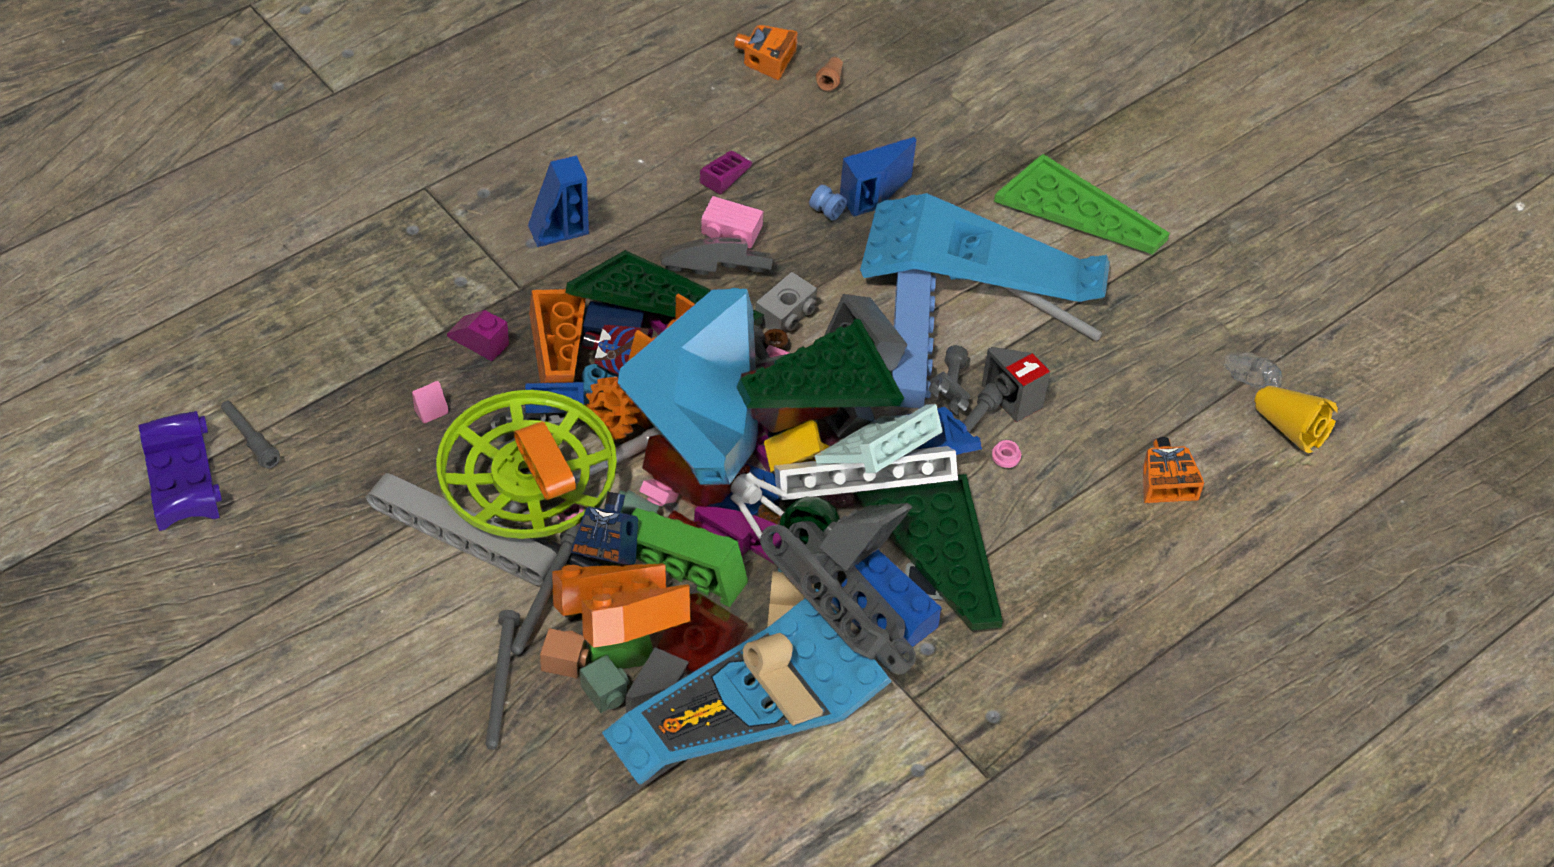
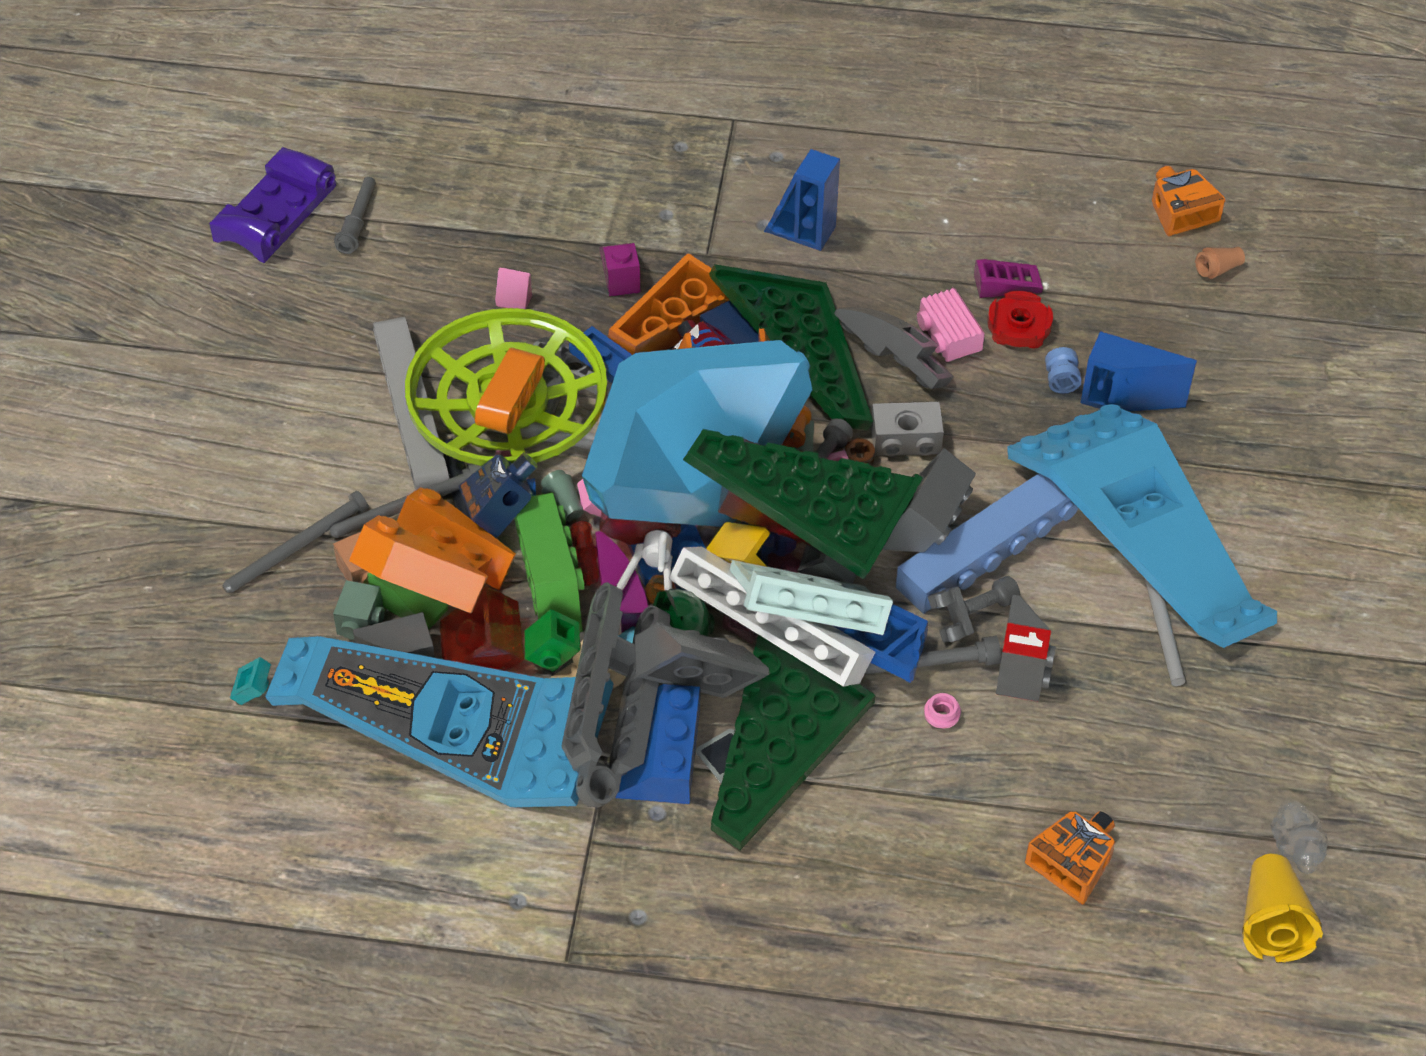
camera: 50 degrees right, 0 degrees up
(593, 786) = (251, 681): none -> teal plate
(752, 598) = (552, 640): none -> green brick
(767, 201) = (1008, 331): none -> red plate
(769, 663) = (487, 723): tan door -> none
(1068, 199) = (1316, 541): bright green wing -> none

